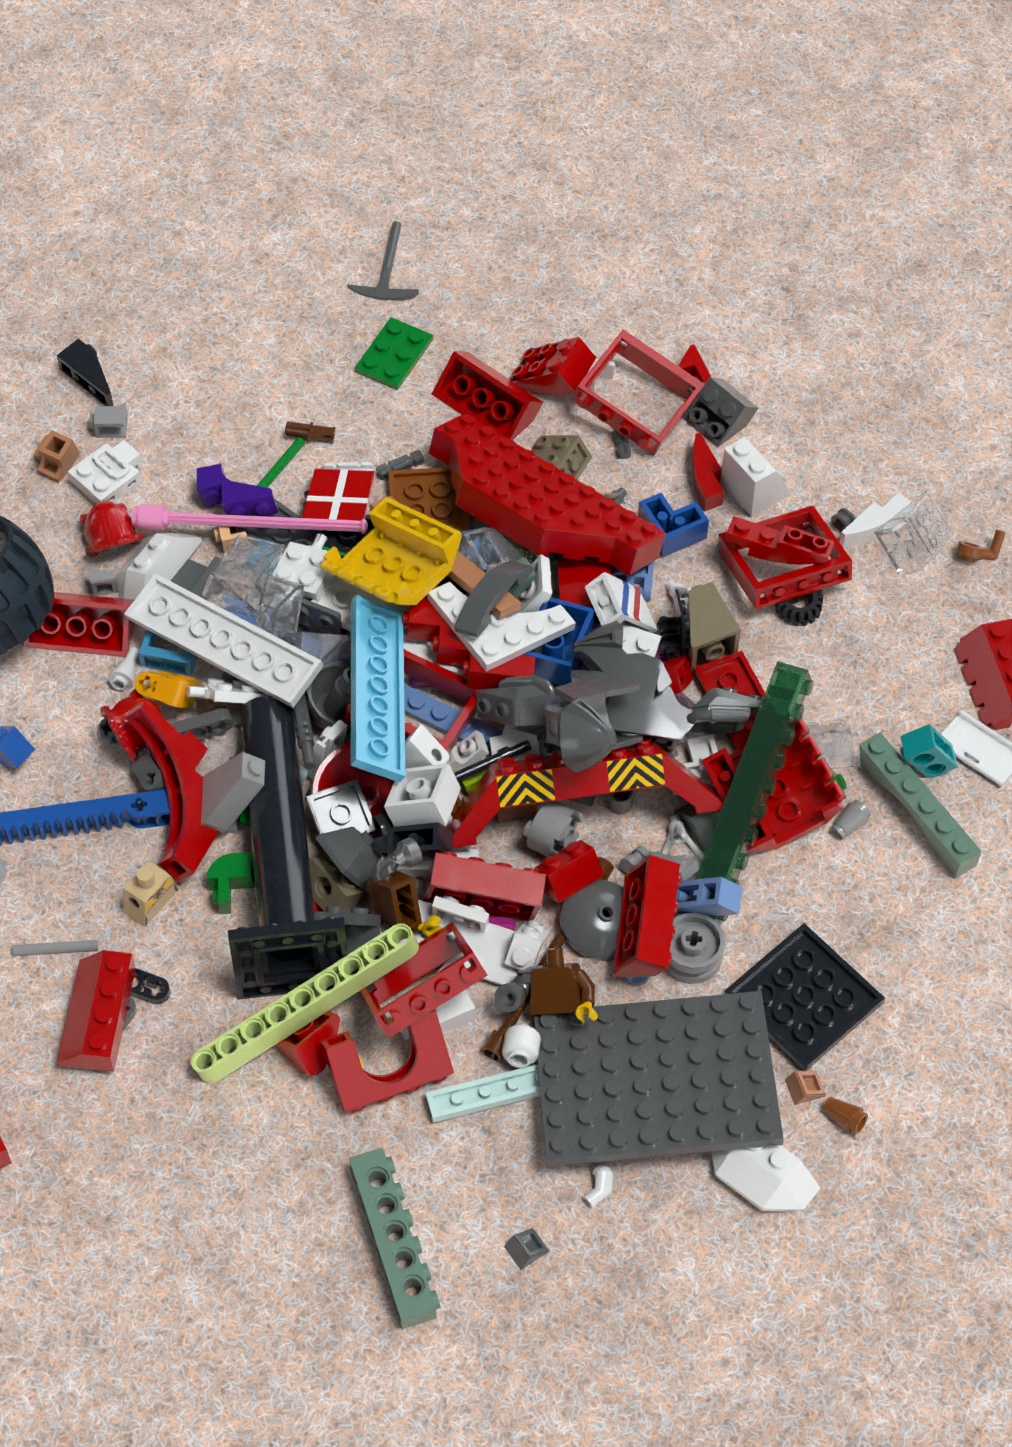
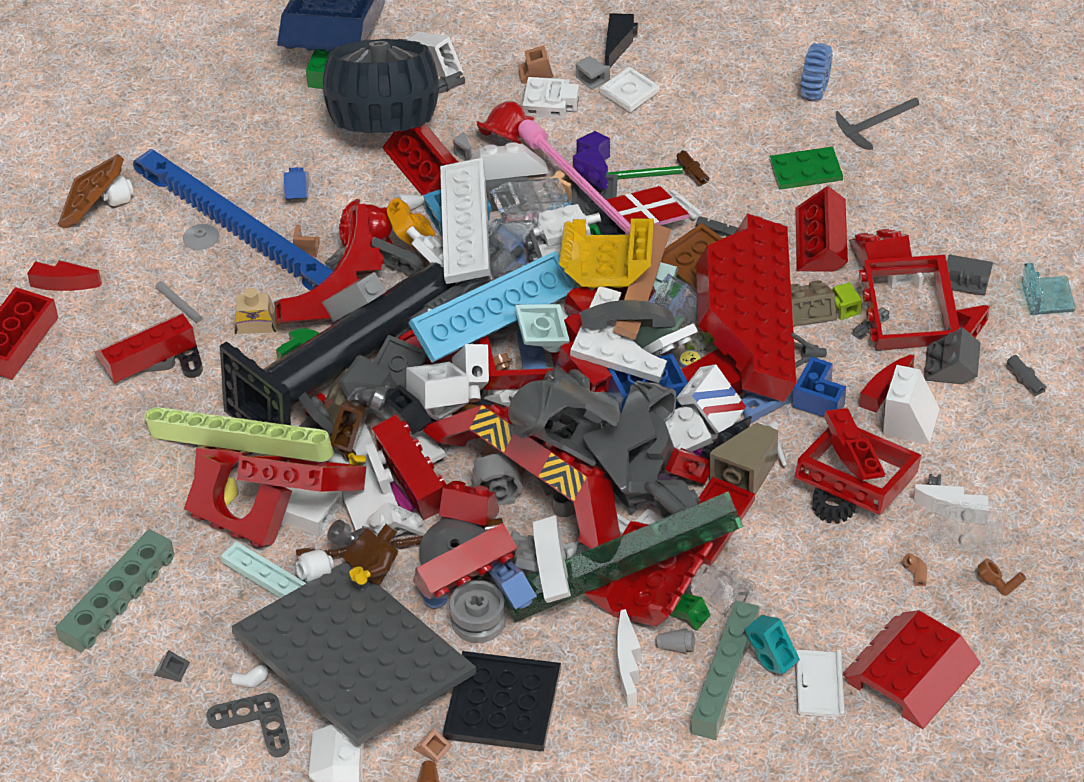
camera: 55 degrees right, 10 degrees down
(92, 788) = (306, 243): none -> nougat panel
(161, 409) = (629, 89): none -> white plate
(299, 262) = (816, 71): none -> medium blue gear
(431, 667) = (542, 326): none -> light aqua slope
(587, 430) = (847, 301): none -> lime brick
(636, 325) = (969, 274): none -> dark grey hinge
(656, 1203) = (265, 715): none -> dark grey beam
(706, 298) = (1046, 294): none -> clear light blue bracket
(706, 847) = (551, 559): none -> white slope
(783, 376) = (1026, 375): none -> dark grey pin
(832, 864) = (628, 654): none -> white slope
(920, 595) = (916, 567): none -> nougat arm

